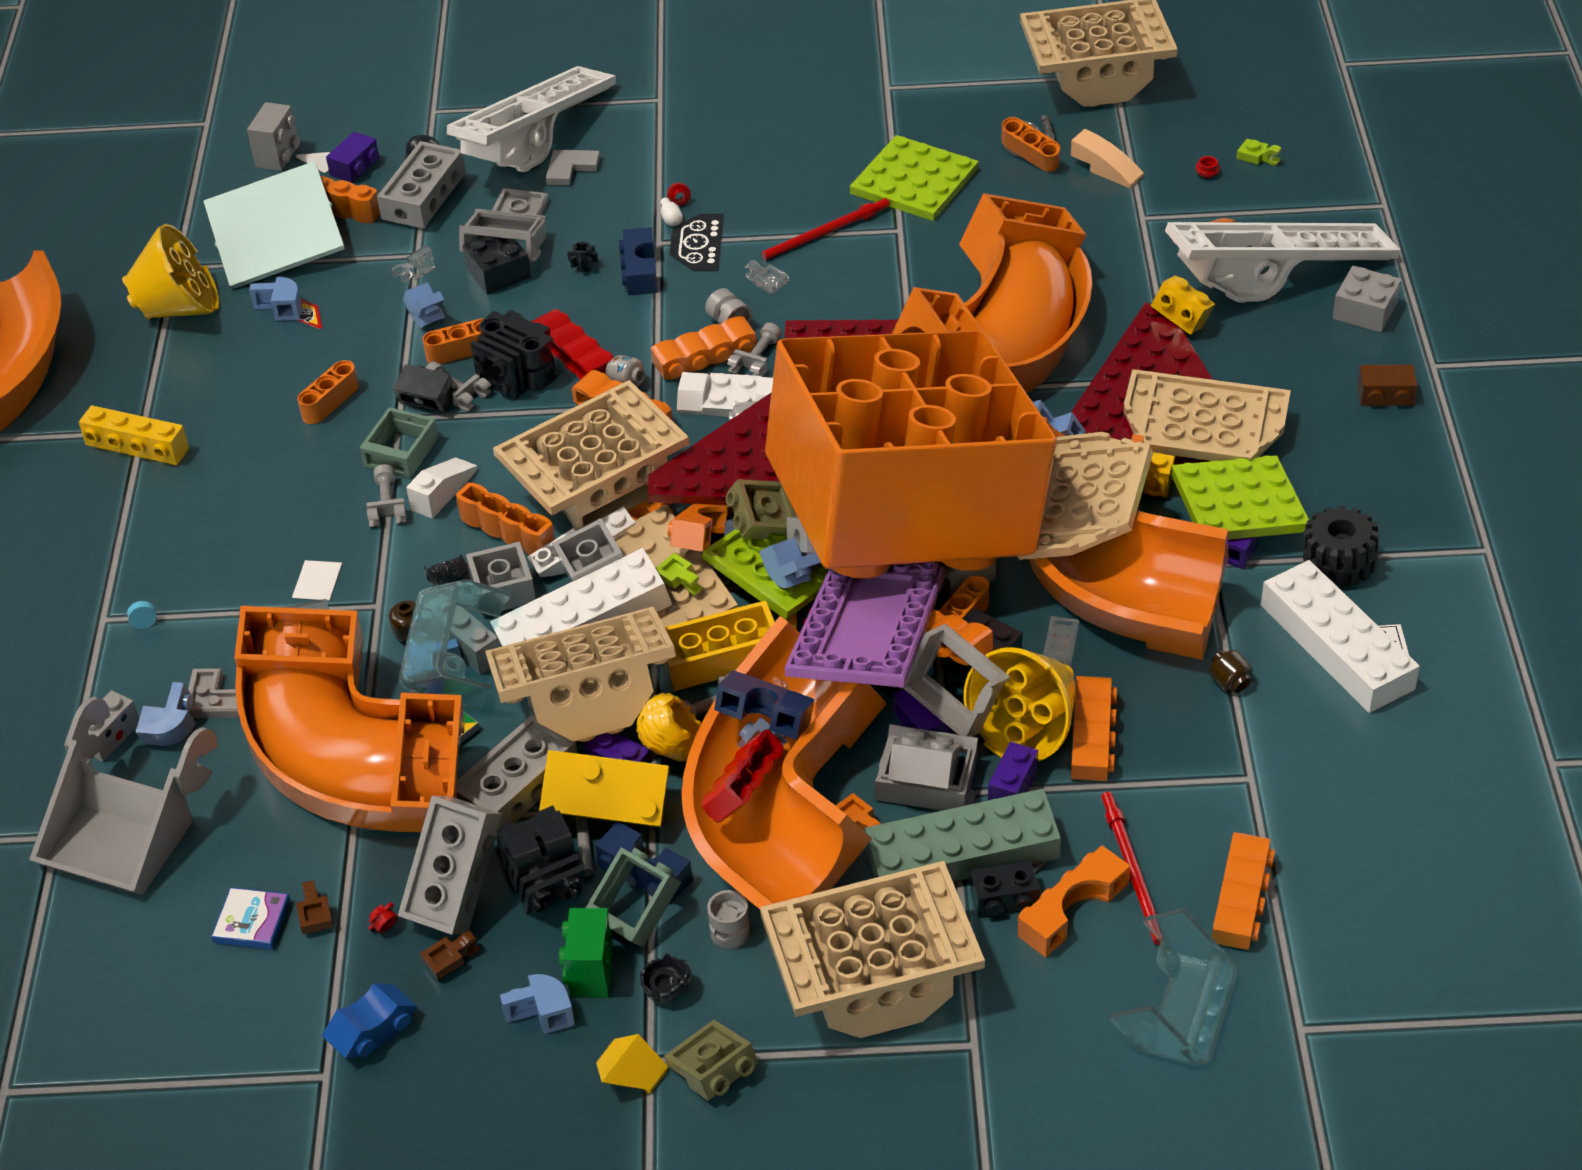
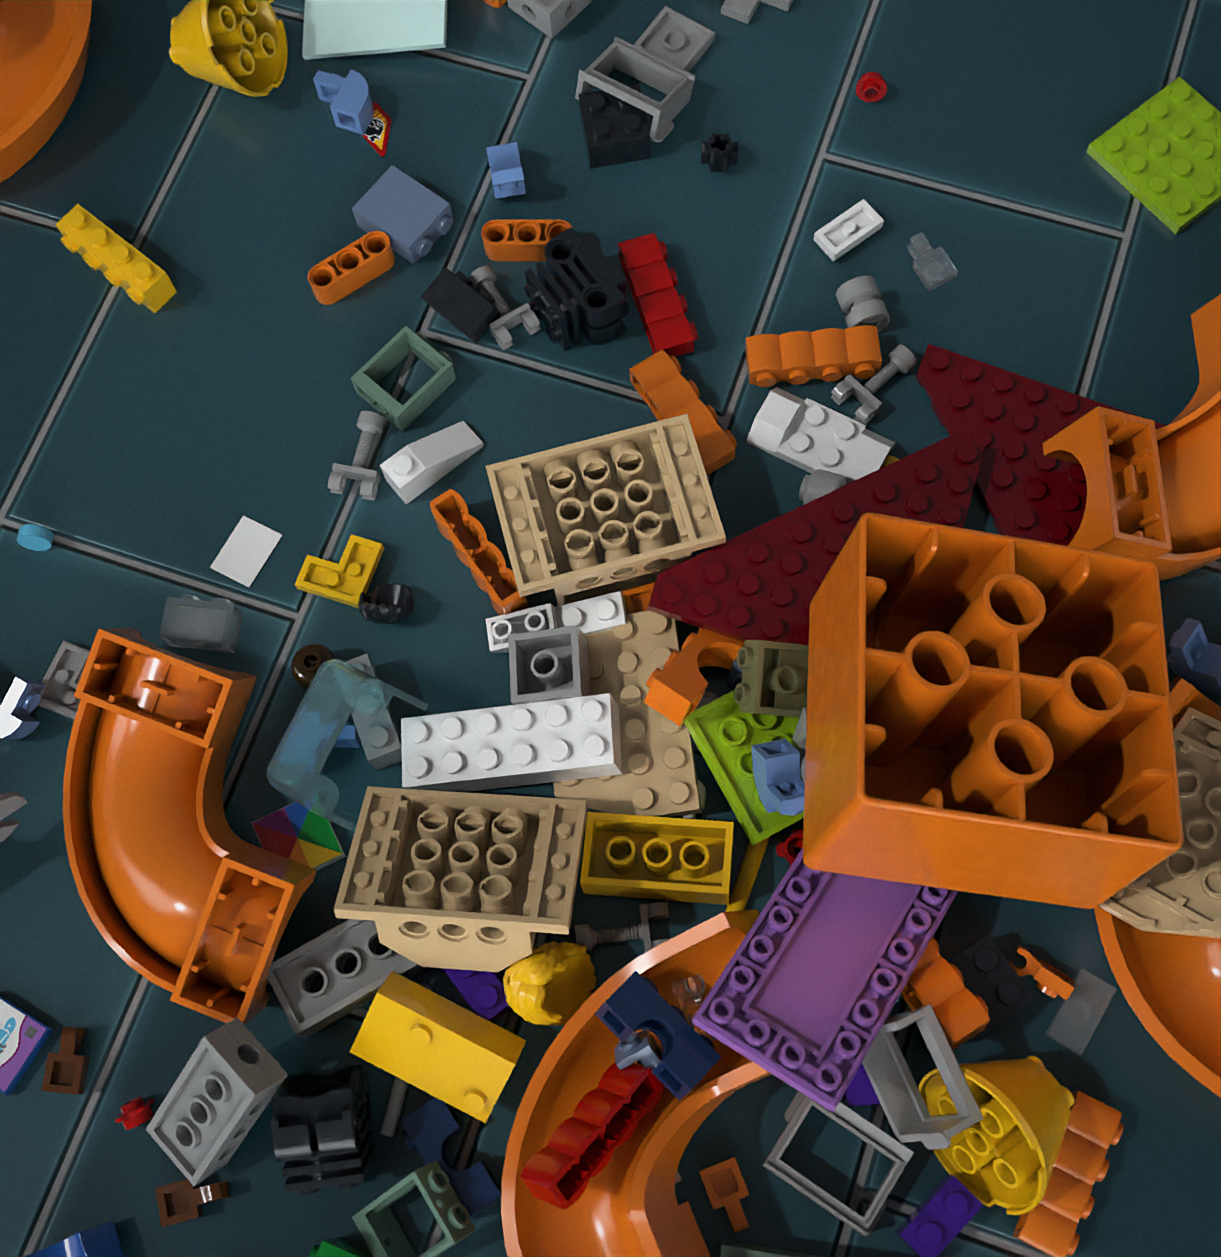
camera: 25 degrees right, 25 degrees up
(363, 346) = (405, 212): none -> sand blue brick
(403, 571) = (344, 580): none -> yellow plate
(418, 265) = (522, 99): clear plate -> none
(503, 569) = (441, 645): light grey brick -> none
(626, 368) = (703, 362): light grey head -> none
(638, 261) = (789, 161): dark blue arch -> none
(670, 213) = (851, 113): white cylinder -> none
(679, 571) = (641, 735): lime plate -> none
(698, 242) = (870, 166): black sticker -> none
(698, 275) = (848, 230): none -> white plate
(865, 211) = (1093, 193): red bar -> none
(924, 760) = (834, 1170): light grey brick -> none
(969, 596) = (963, 927): orange beam -> none
(1032, 628) = (1049, 978): none -> orange plate

